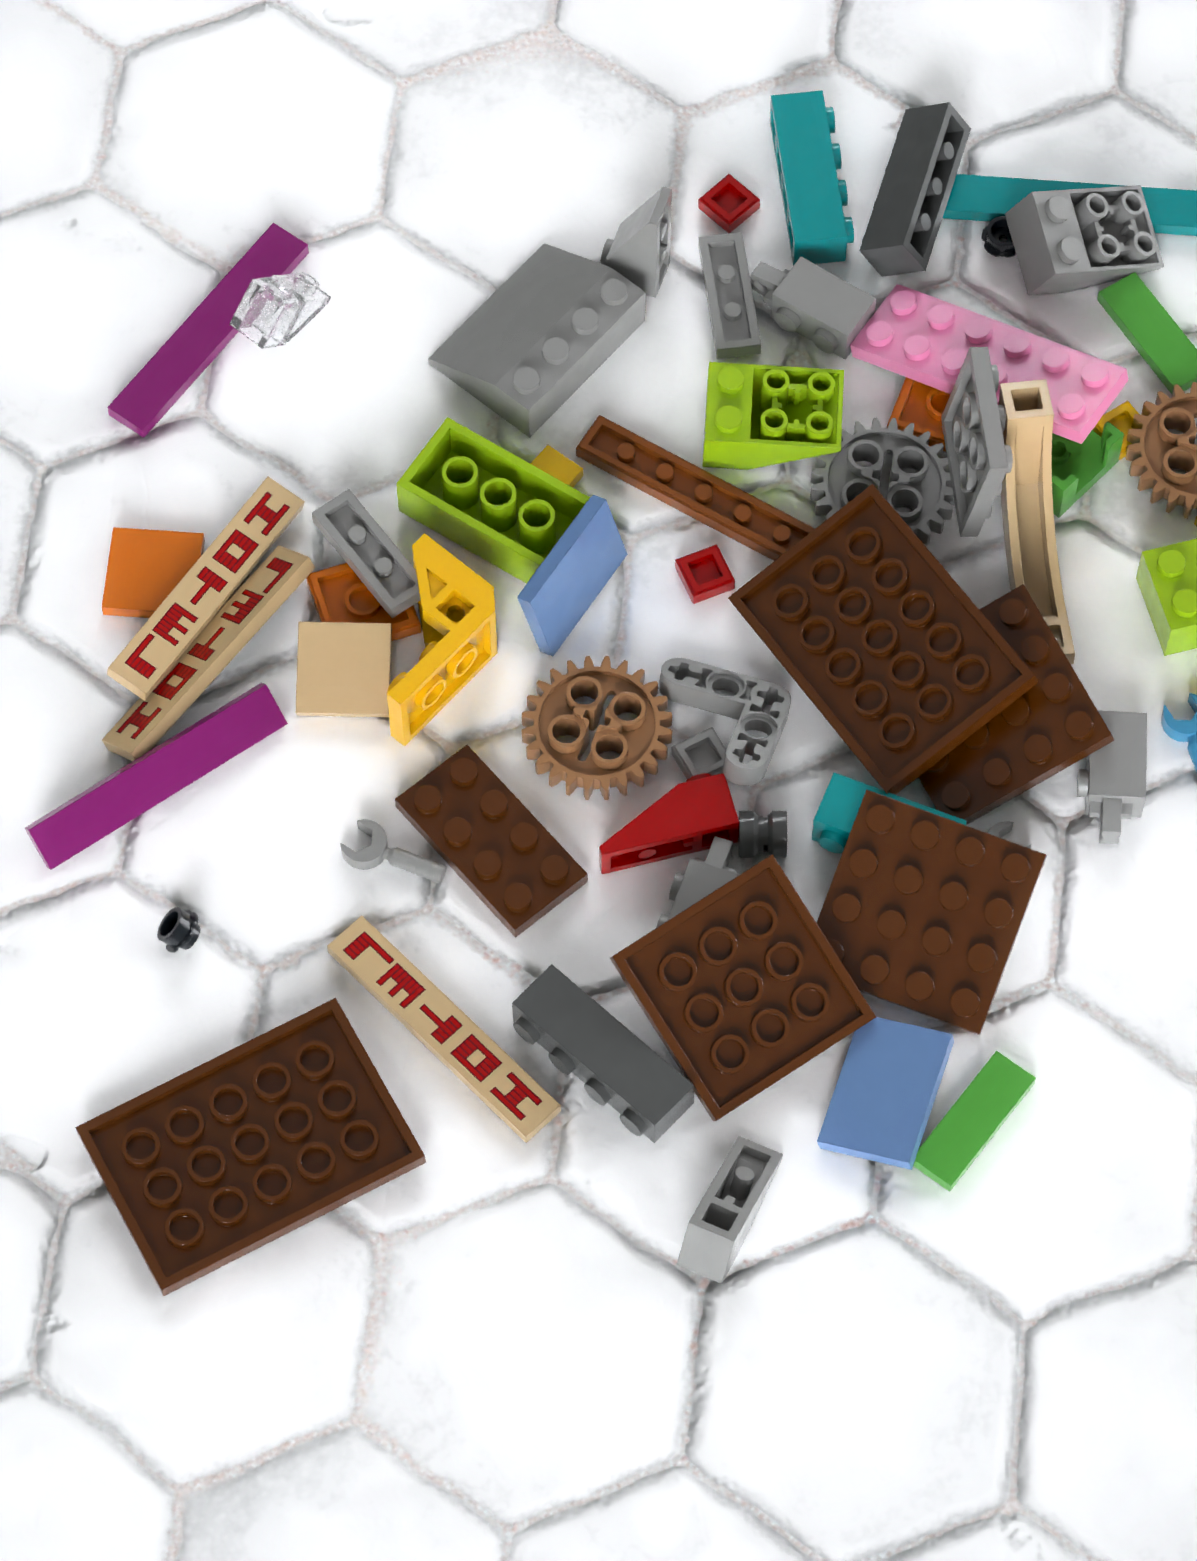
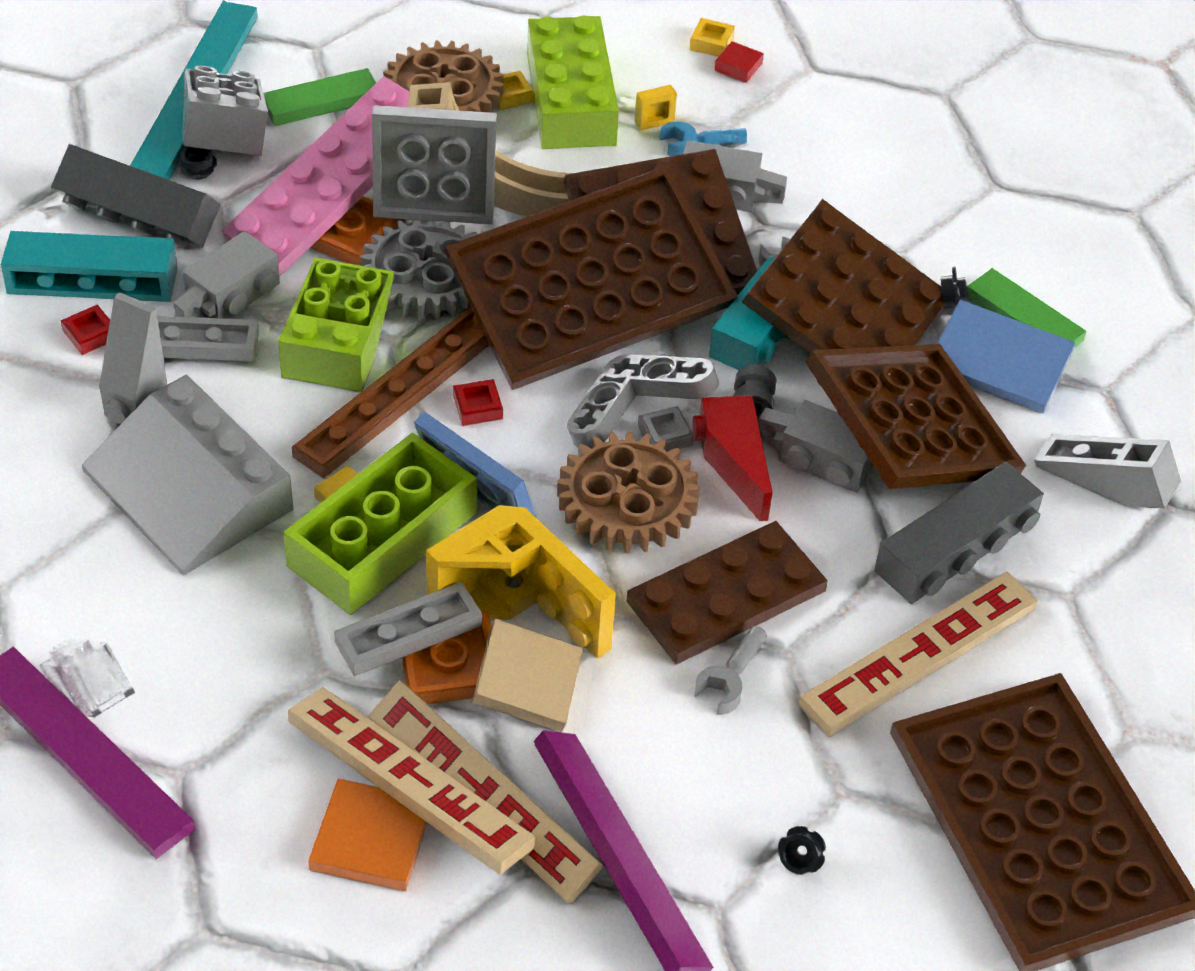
camera: 85 degrees left, 15 degrees down
(981, 1034) = (953, 289): none -> black plate

